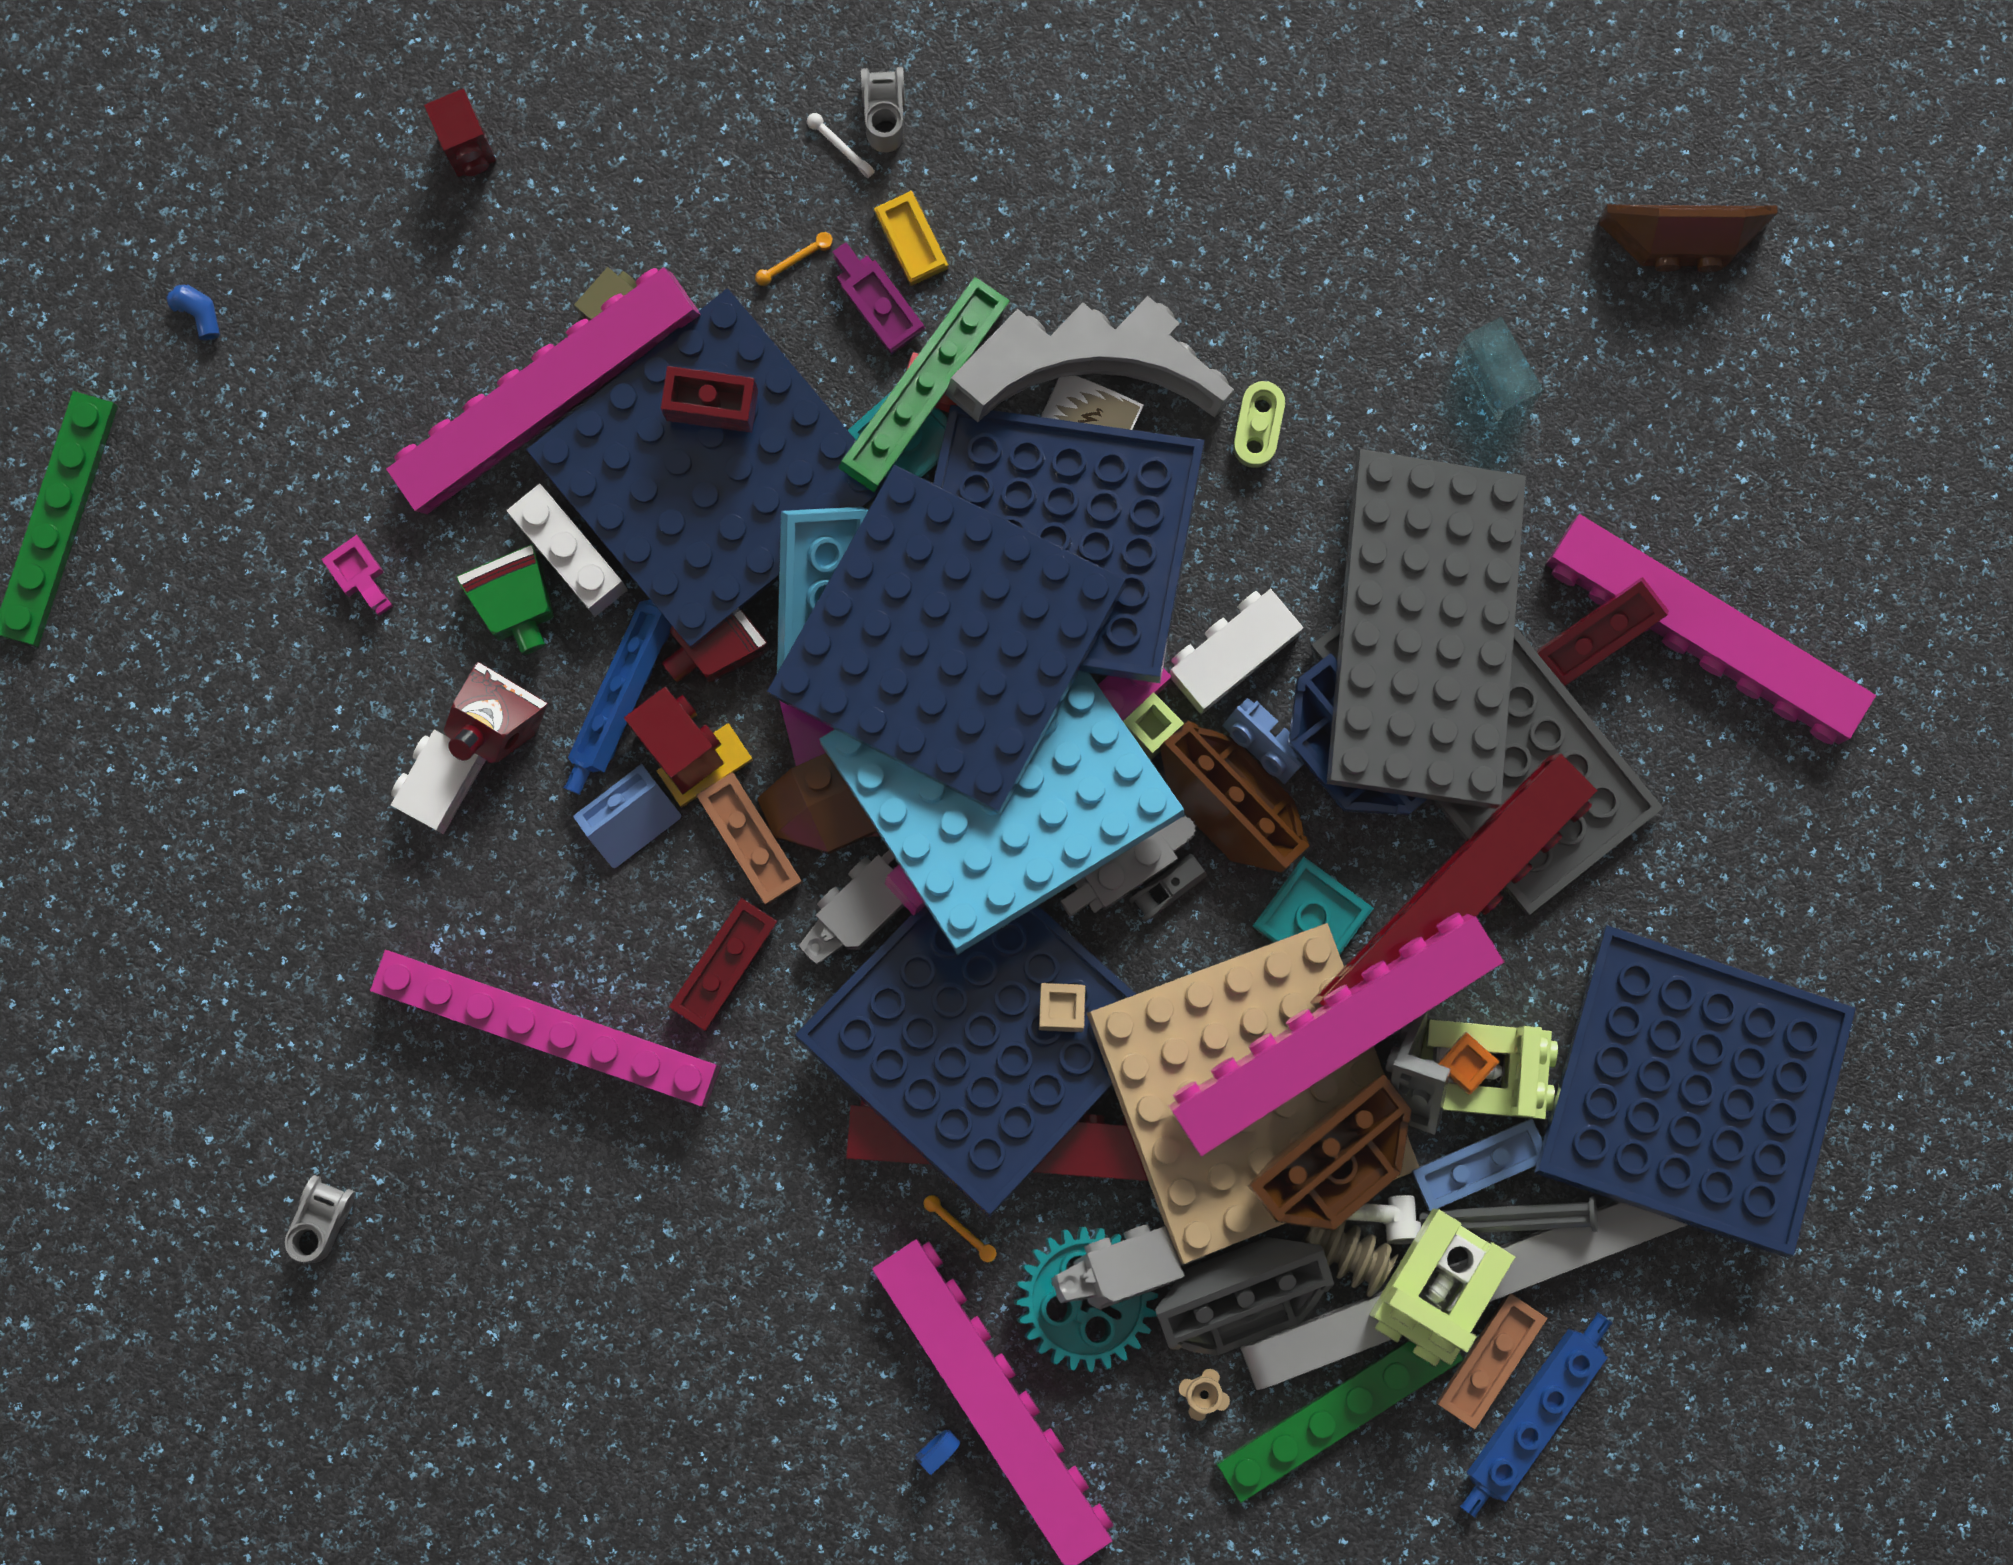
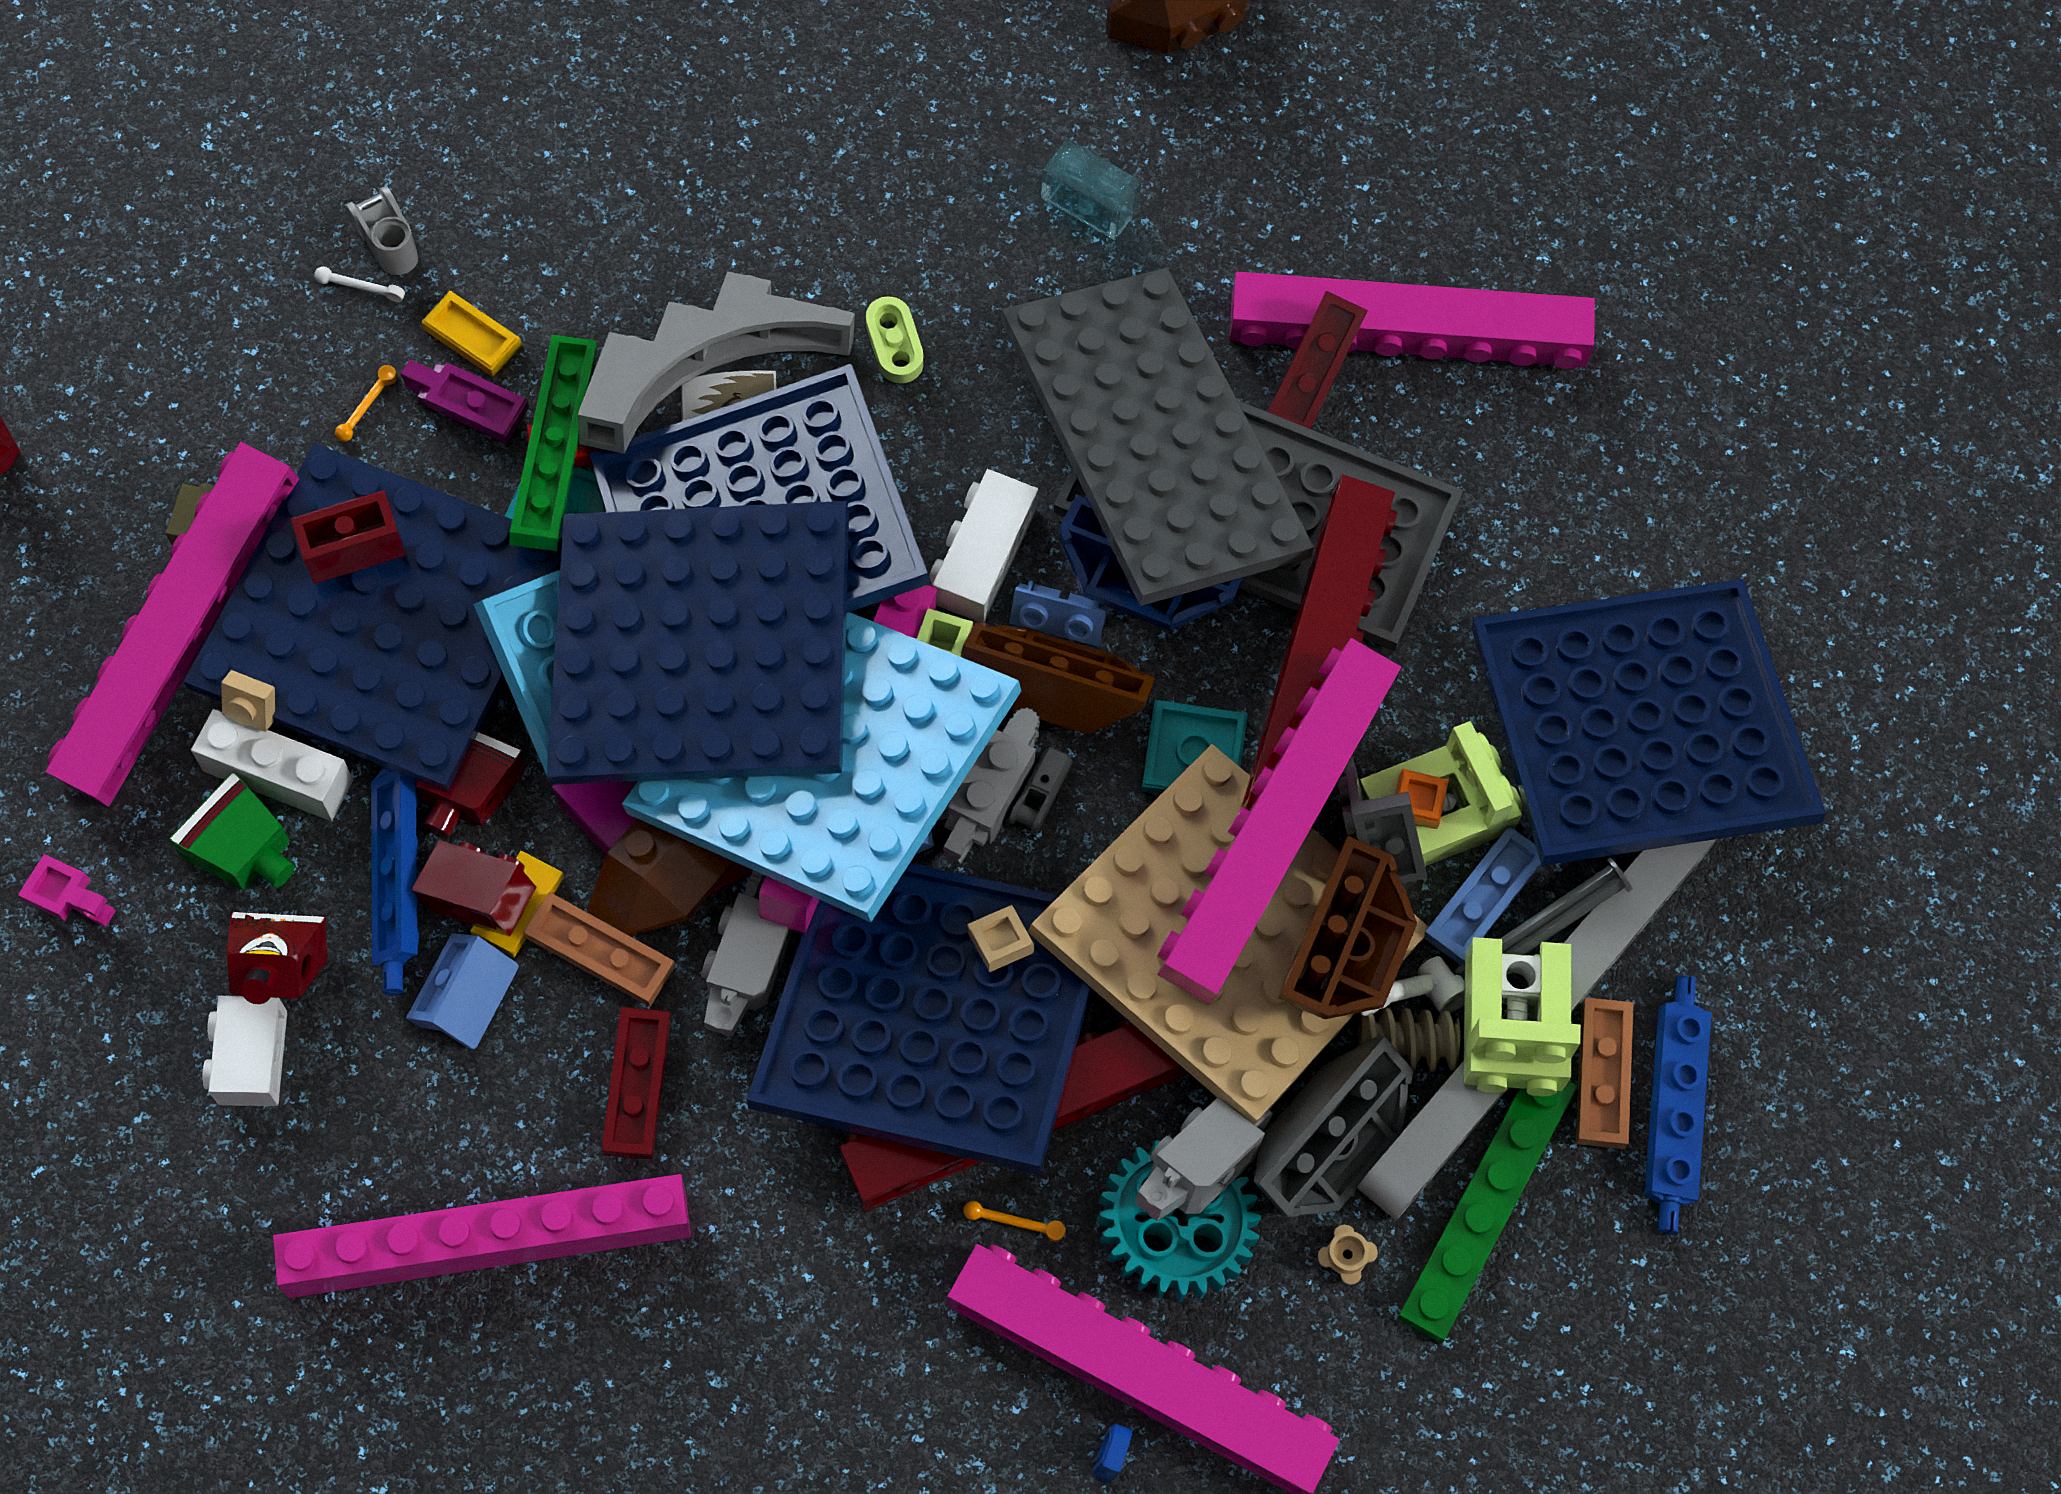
camera: 30 degrees left, 15 degrees down
(566, 496) = (248, 700): none -> tan plate

